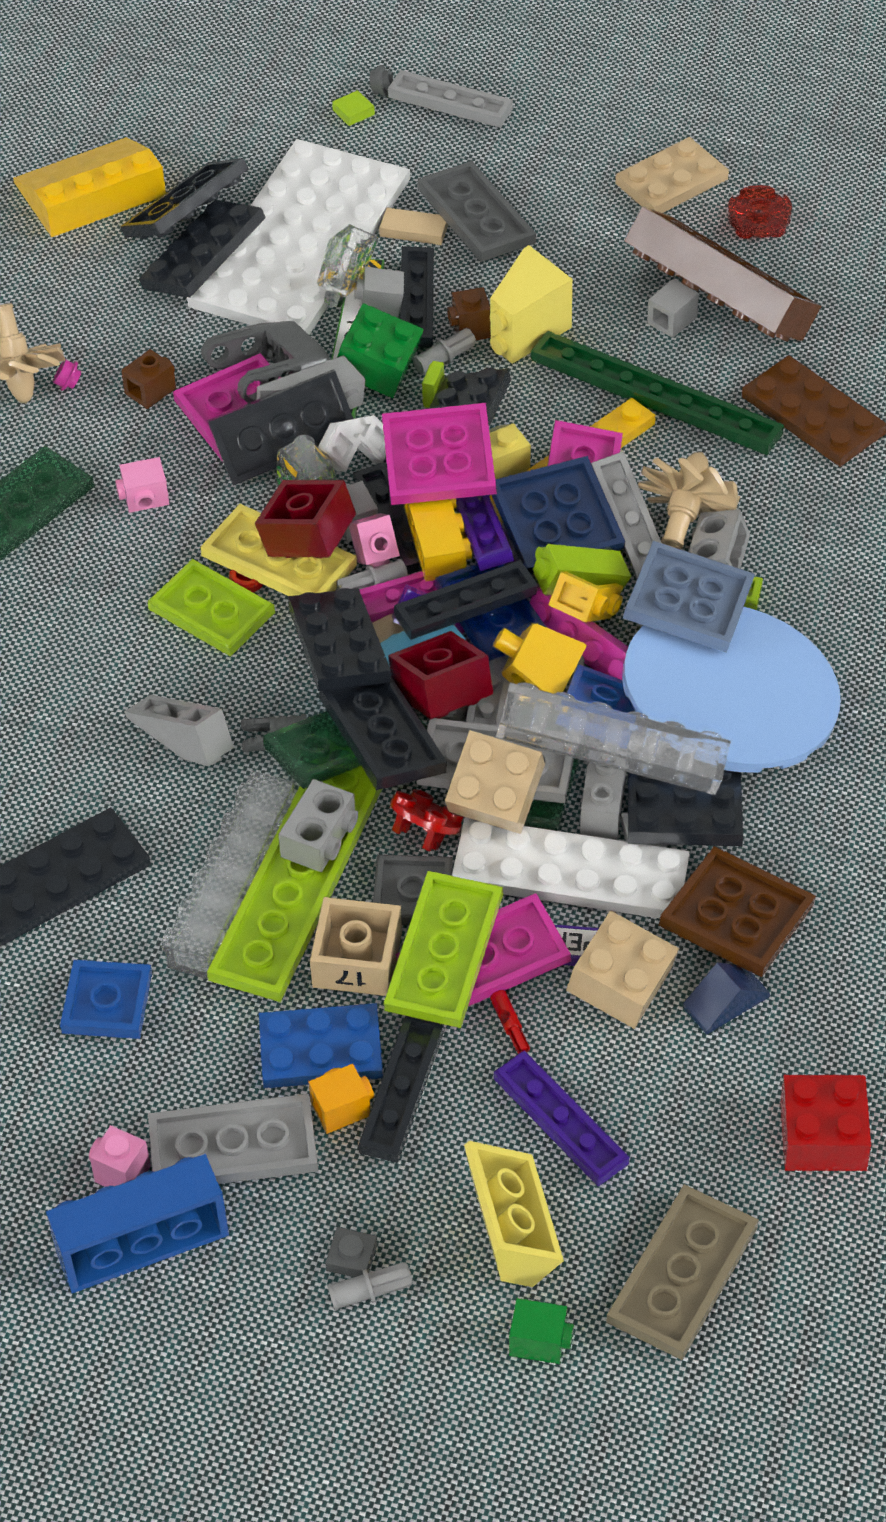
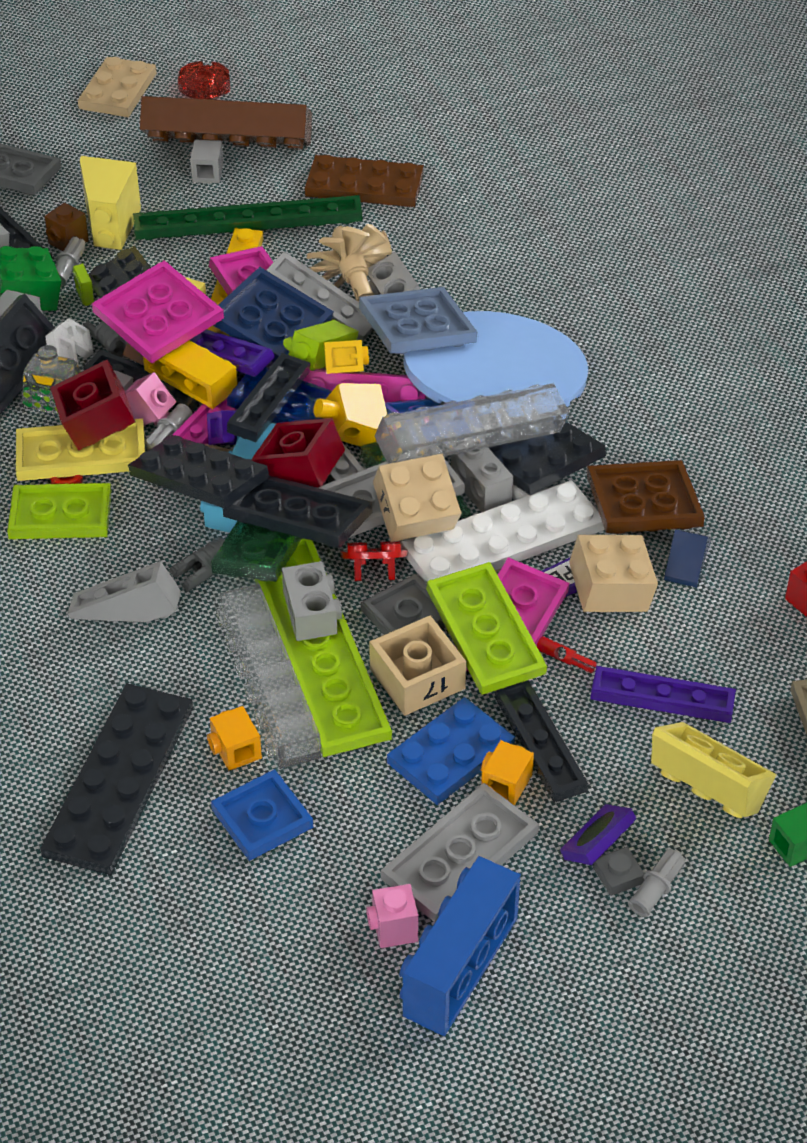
camera: 40 degrees left, 5 degrees down
(147, 914) = (234, 738): none -> light orange brick
(362, 1207) = (598, 834): none -> dark purple tile

